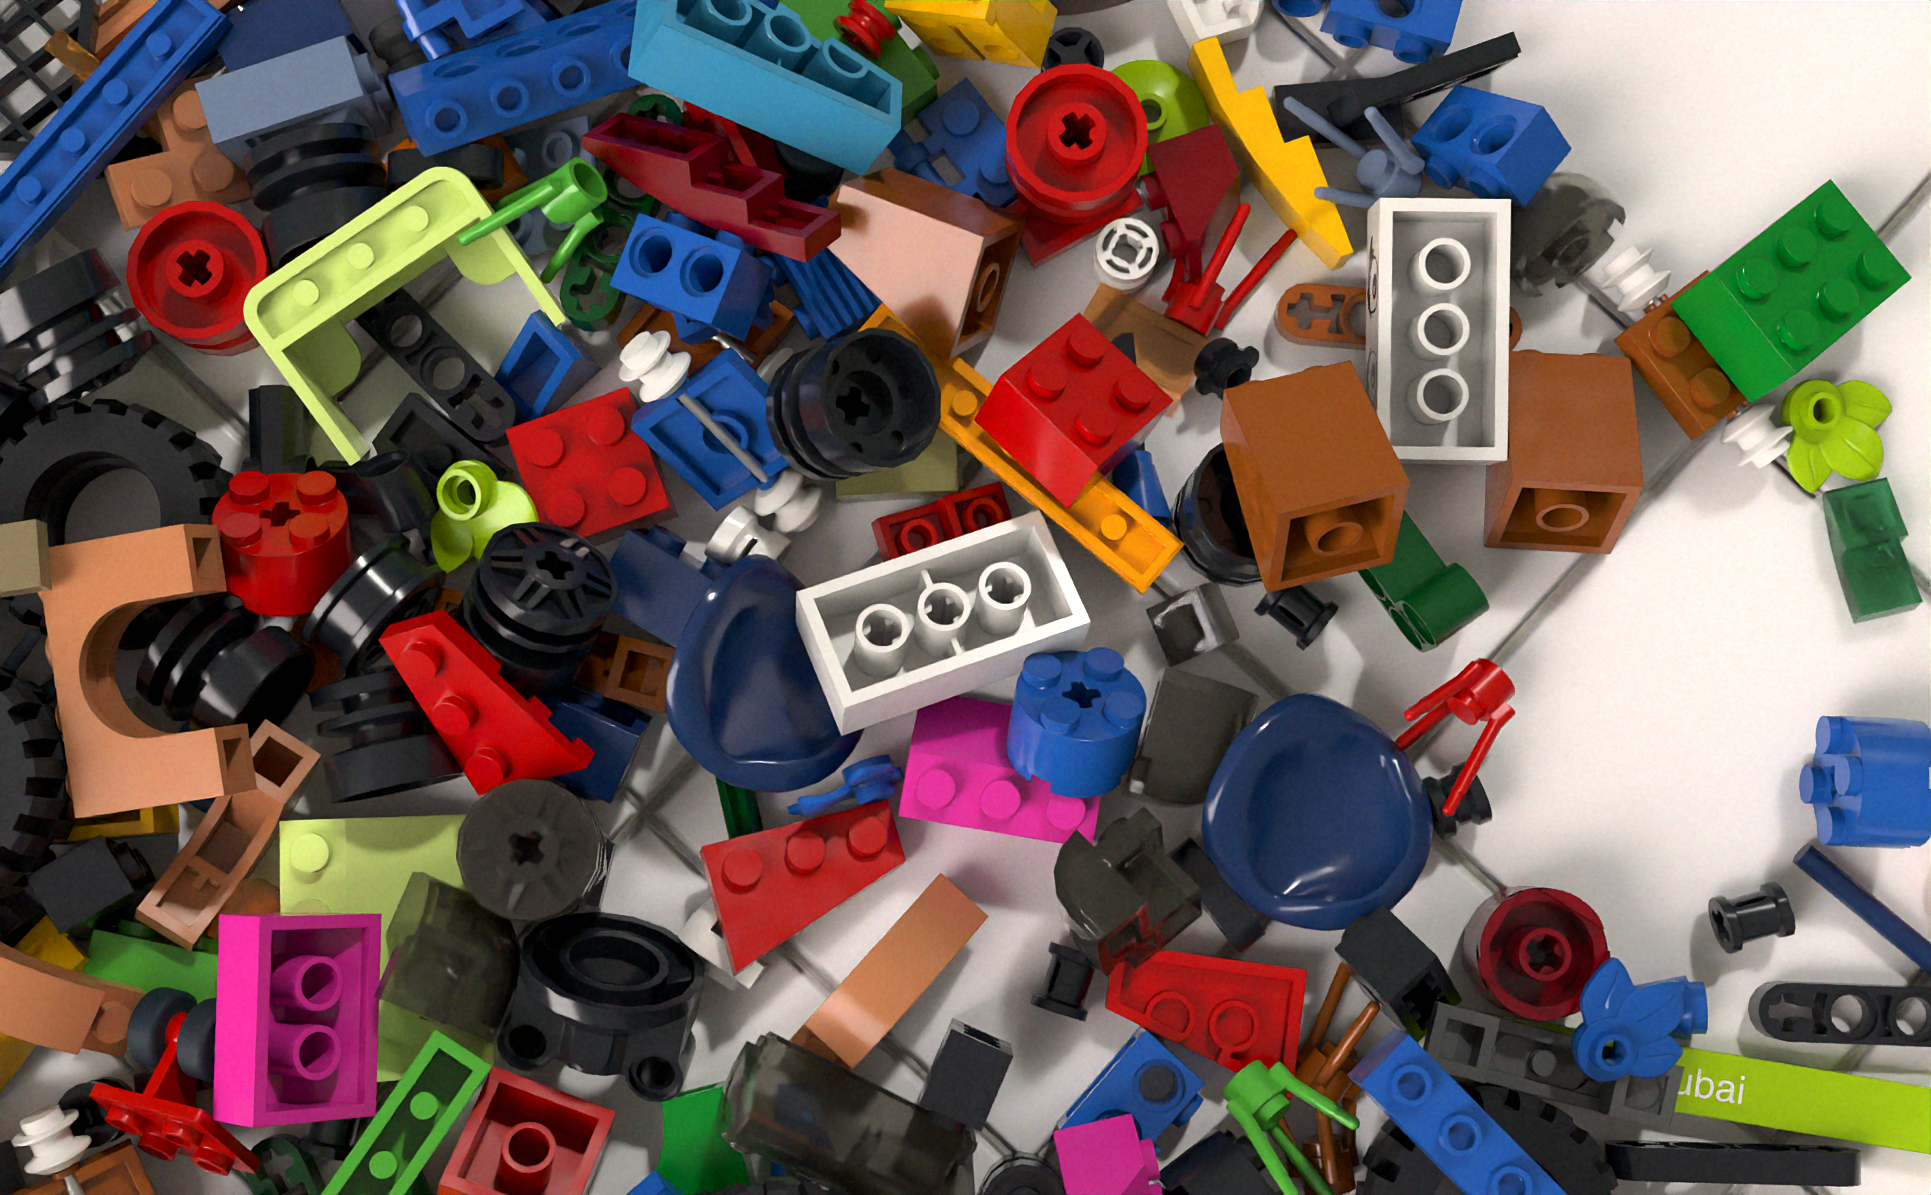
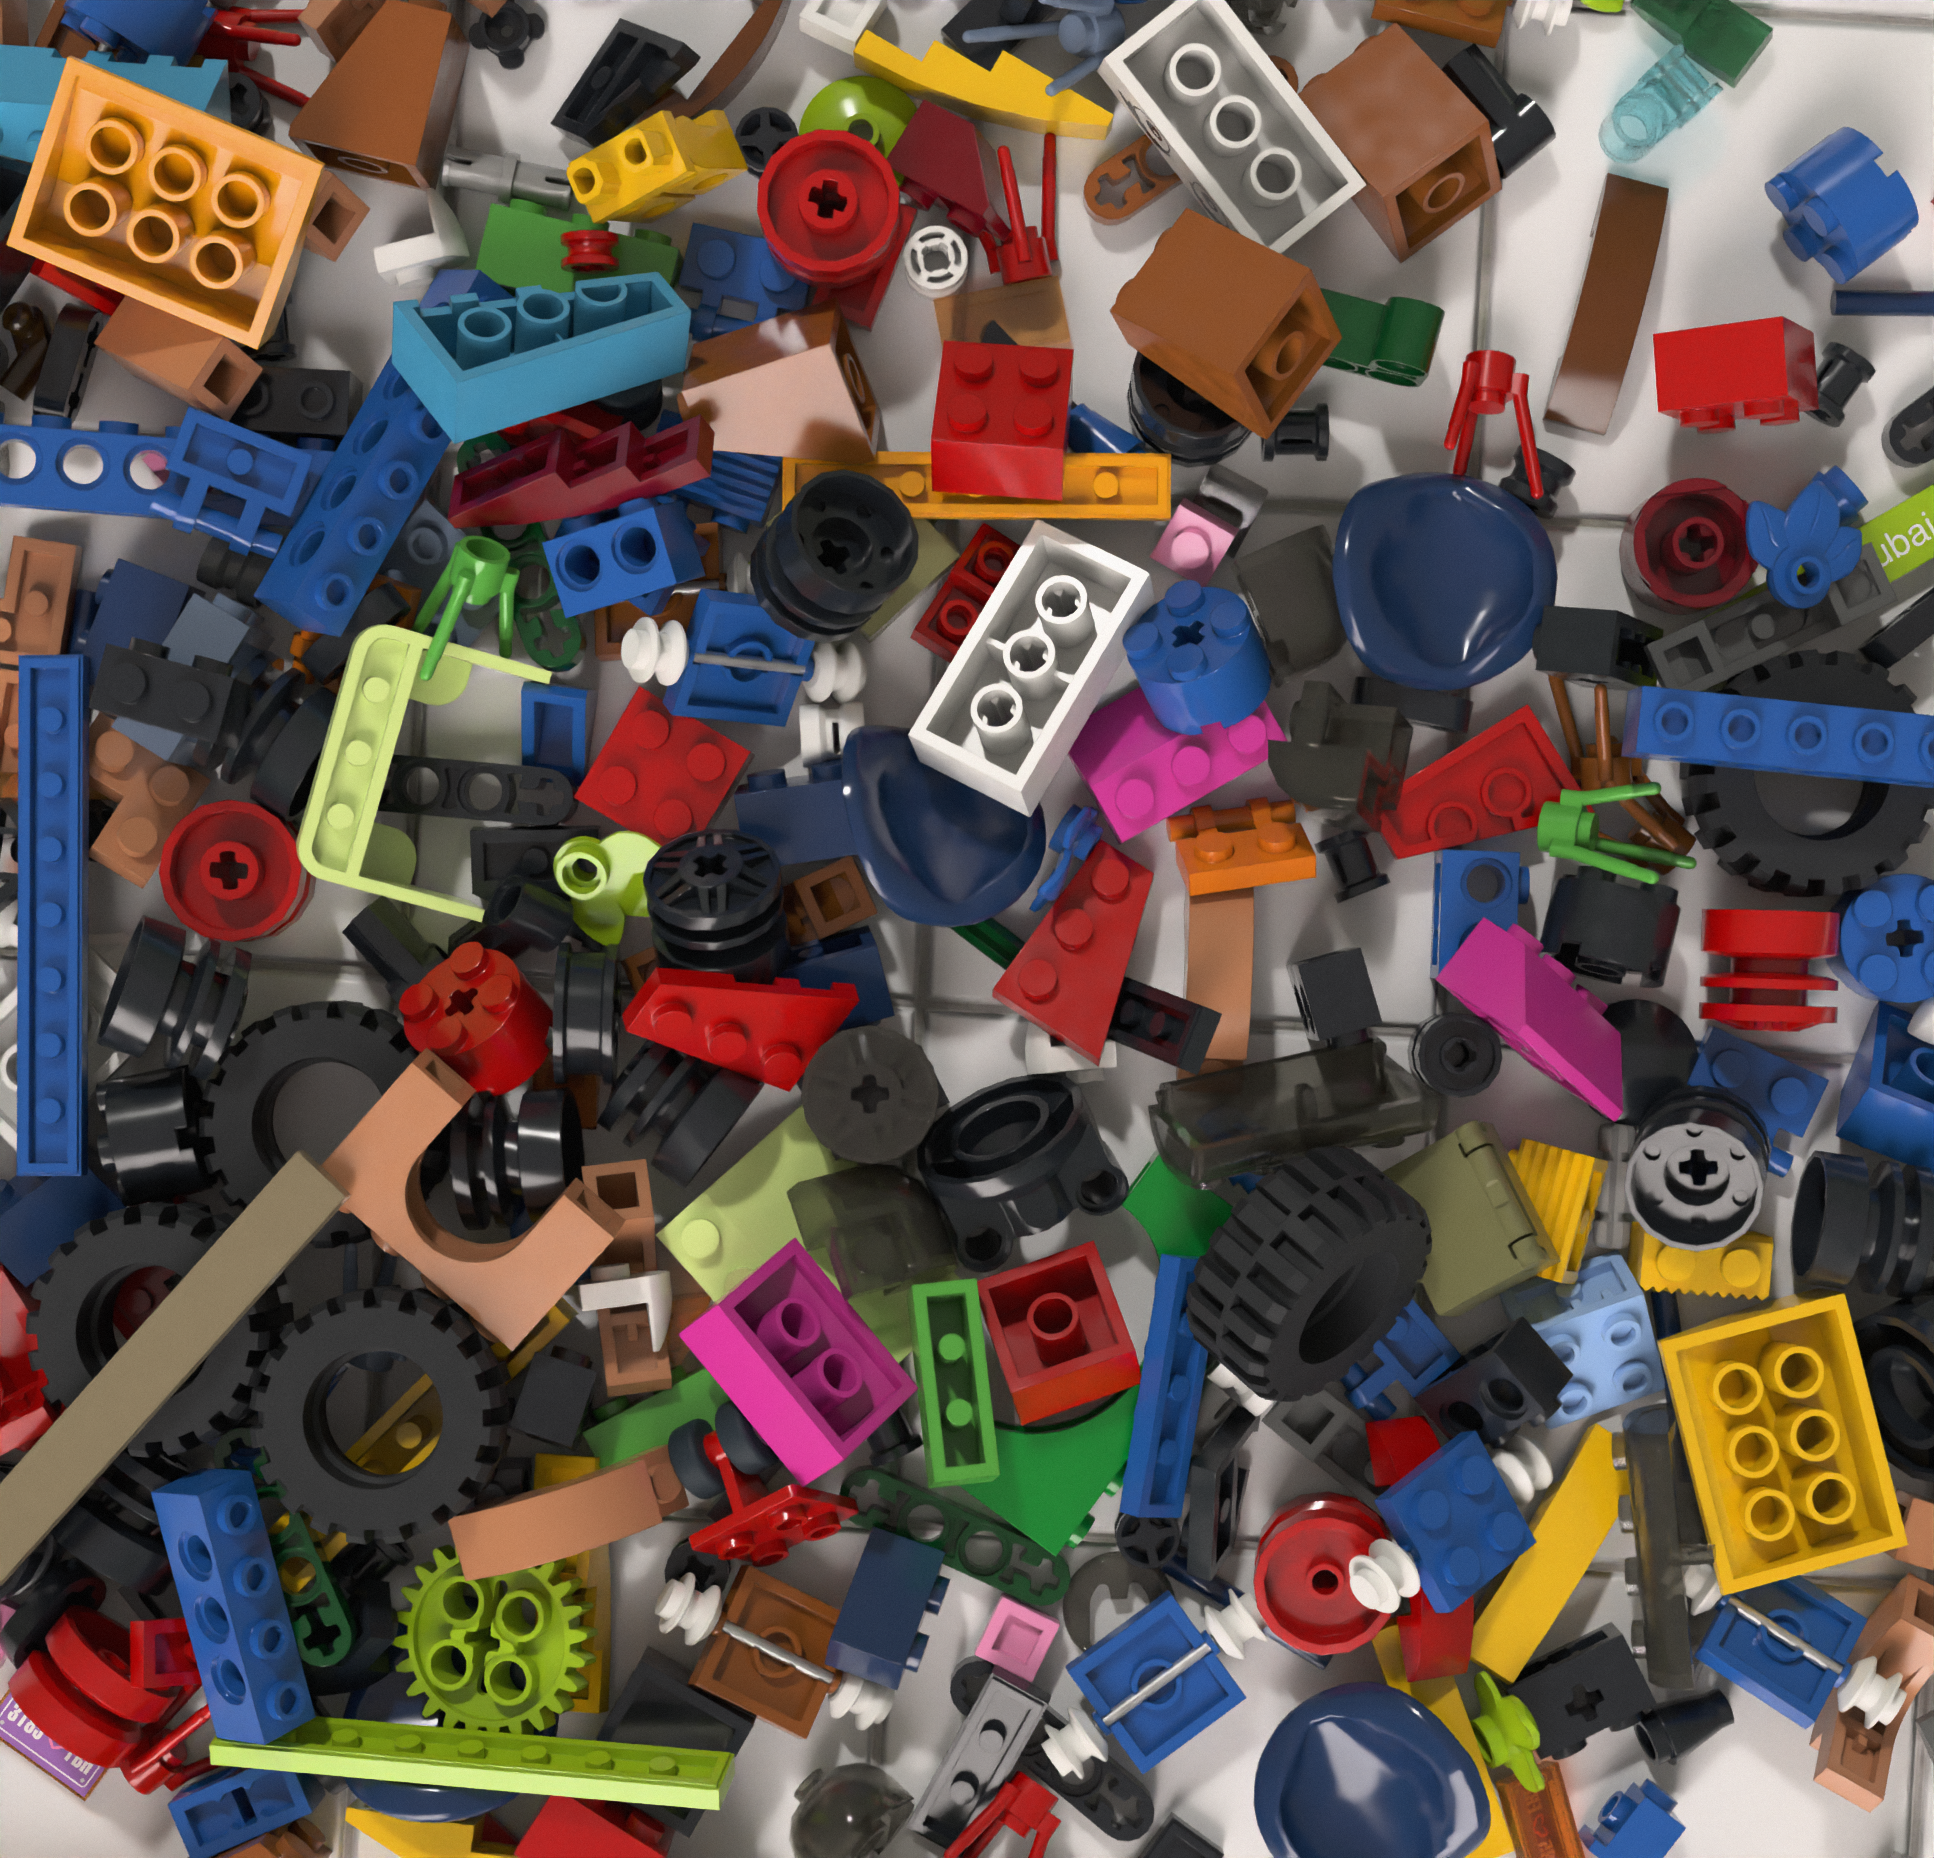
camera: 35 degrees left, 5 degrees up
(213, 838) = (615, 1287): none -> white plate
(251, 94) = (172, 696): none -> black brick
(807, 987) = (1163, 1025): none -> black tile
(982, 907) = (1240, 846): none -> orange plate
(1148, 629) = (1194, 542): none -> bright pink plate
(1223, 366) = (1085, 289): black plate -> none
(1621, 710) = (1608, 304): none -> reddish brown slope
(1662, 511) = (1515, 121): none -> black piece
(1683, 845) = (1736, 373): none -> red brick
(1790, 588) = (1663, 101): none -> clear light blue piece

